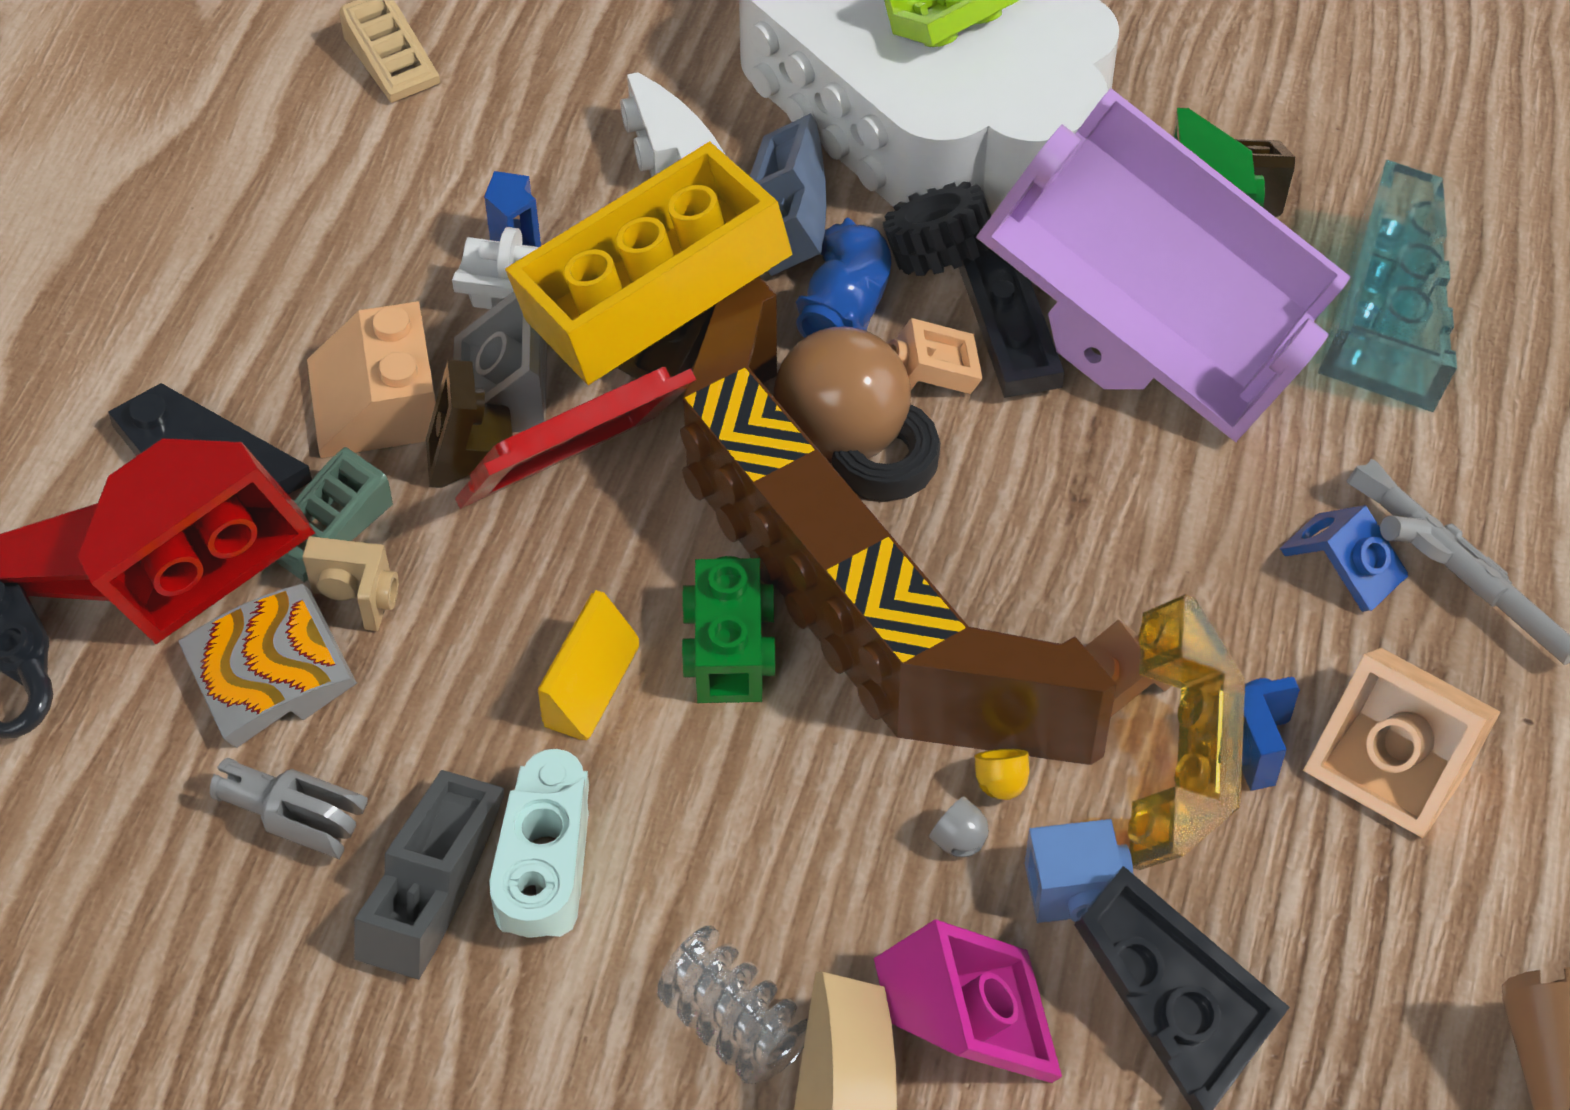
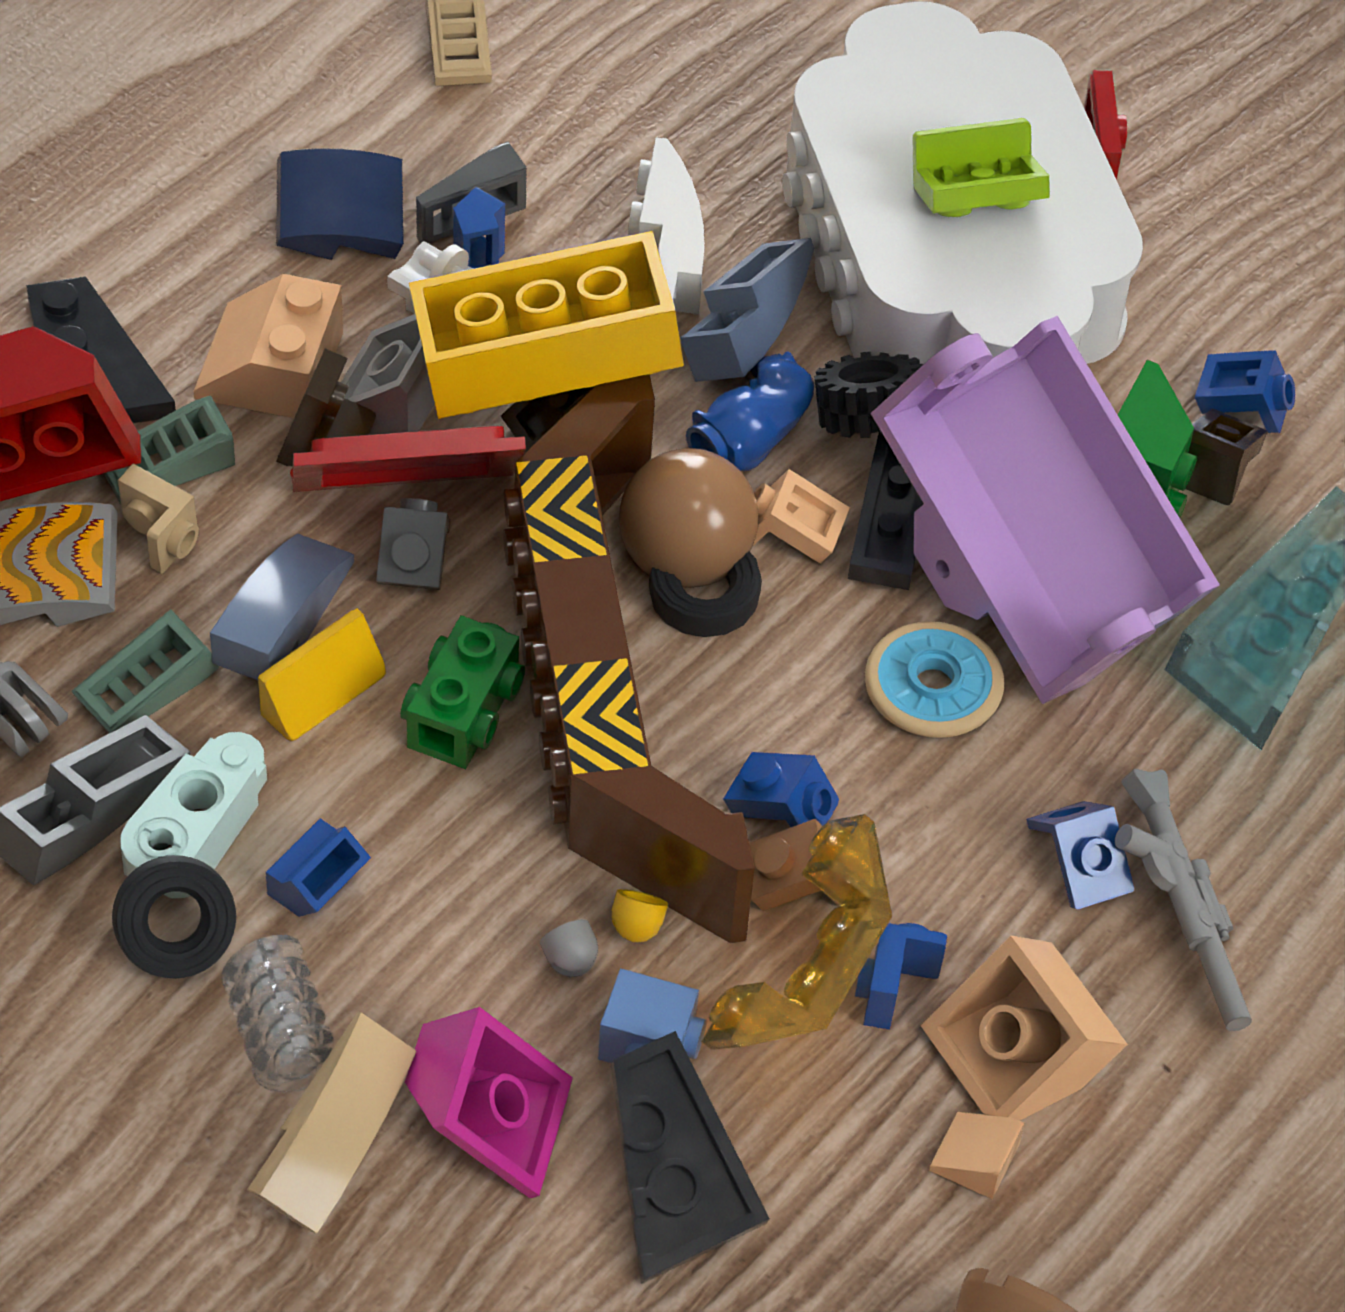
camera: 20 degrees right, 0 degrees up
(363, 231) = (339, 200): none -> dark blue slope
(420, 683) = (150, 646): none -> sand green slope
(464, 201) = (495, 172): none -> dark grey slope
(513, 619) = (278, 605): none -> sand blue slope
(540, 947) = (182, 957): none -> black tyre
(605, 513) = (413, 545): none -> dark grey bracket
(685, 852) = (315, 868): none -> blue piece
(1064, 605) = (782, 789): none -> blue bracket
(1127, 487) = (926, 711): none -> medium azure wheel
(1243, 106) = (1247, 384): none -> blue bracket
(1425, 863) = (978, 1151): none -> light nougat slope

